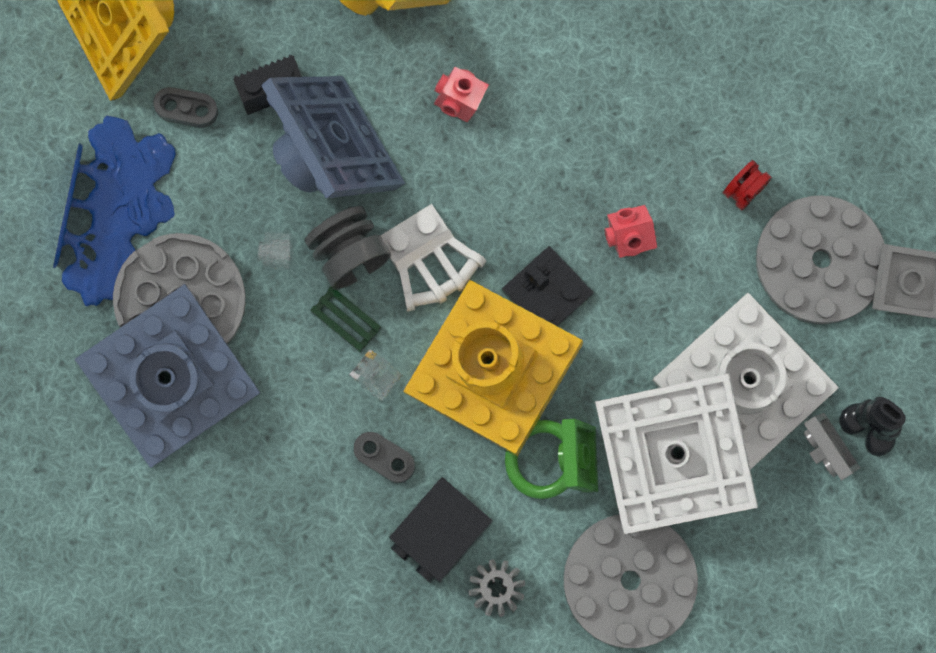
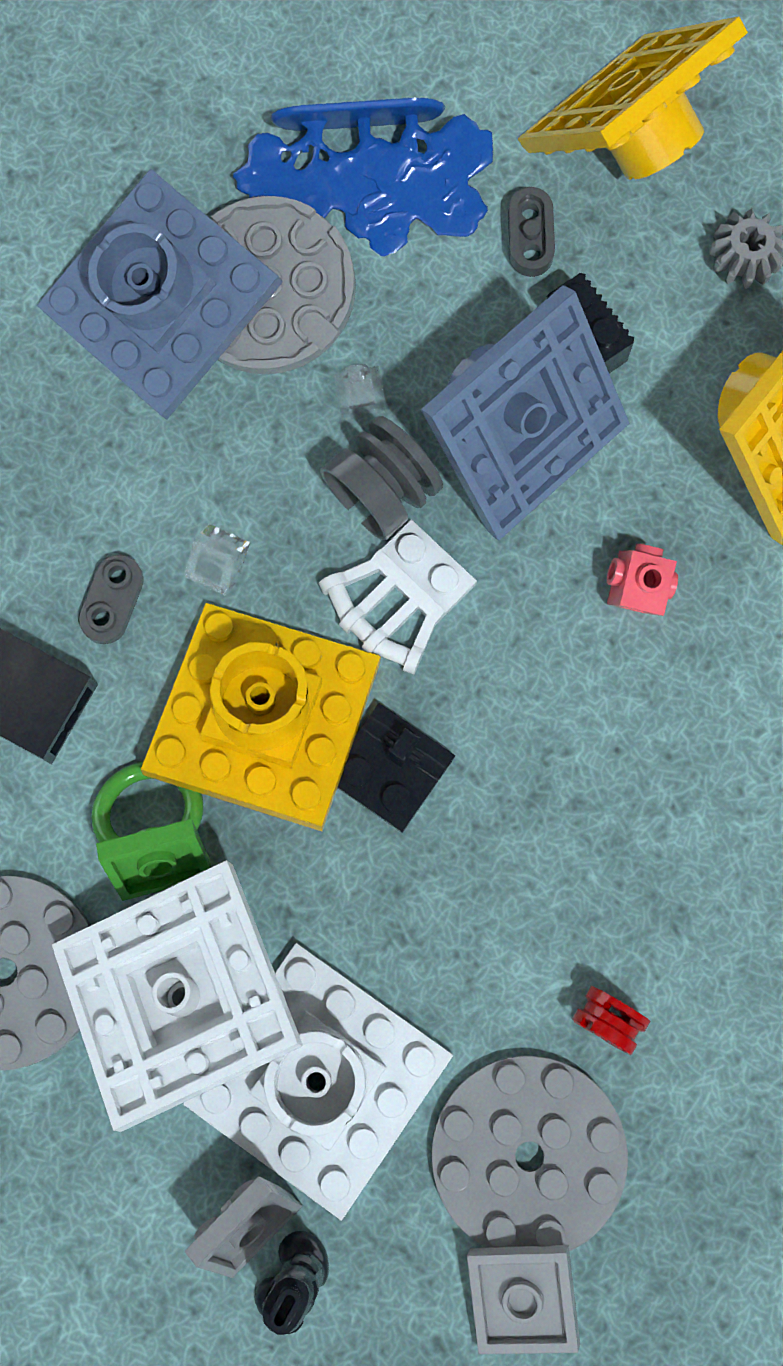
camera: 80 degrees right, 0 degrees up
(324, 301) = (271, 539): dark green tile -> none
(631, 231) = (500, 864): coral brick -> none

